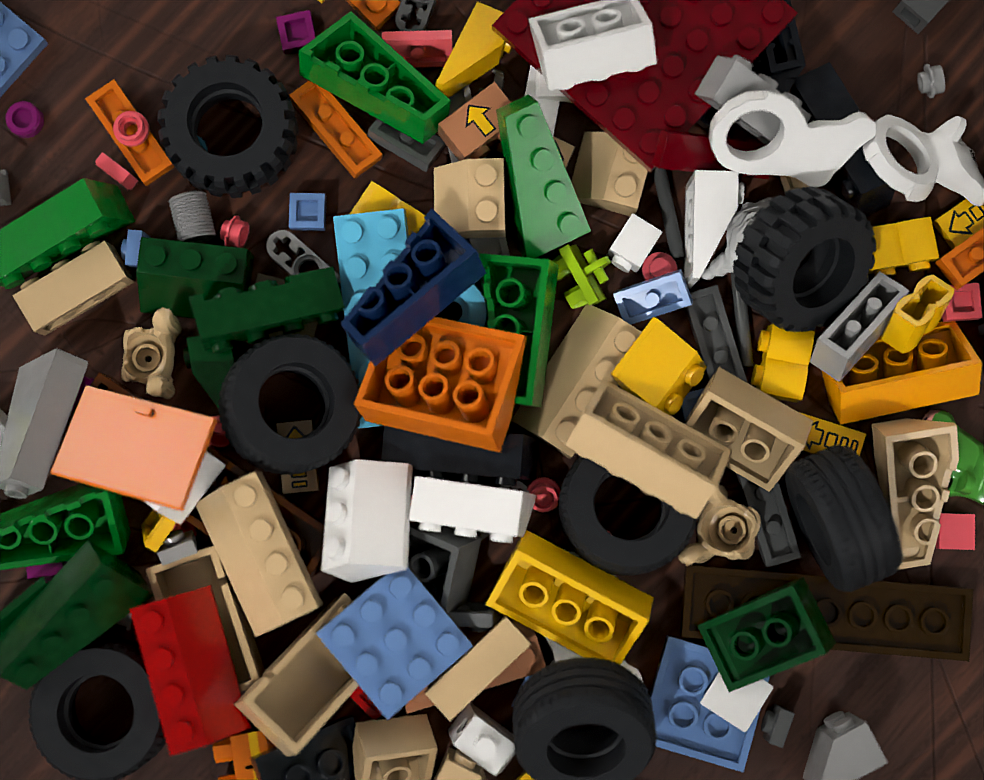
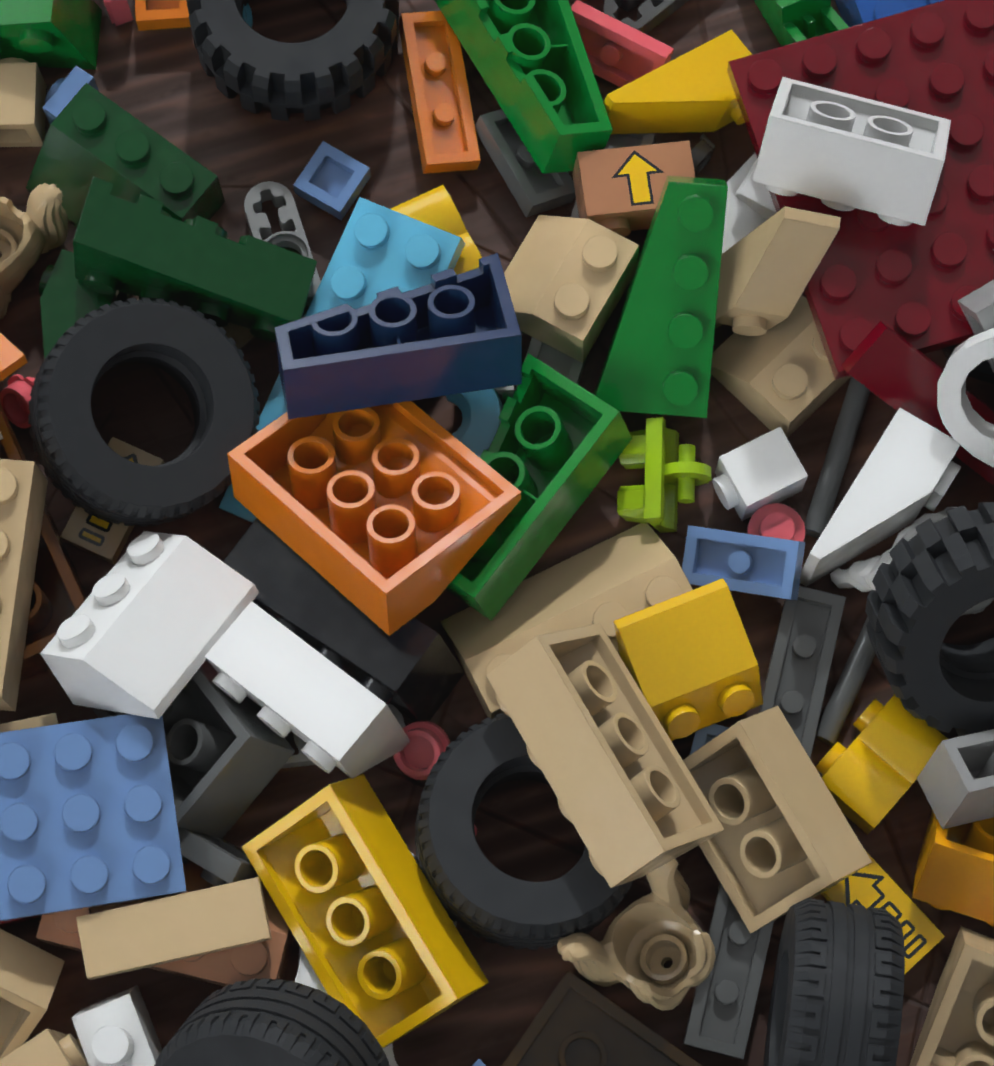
camera: 30 degrees right, 10 degrees down
(192, 217) = (173, 99): light grey piece -> none
(234, 232) = (218, 152): coral plate -> none
(585, 132) = (771, 268): none -> tan slope

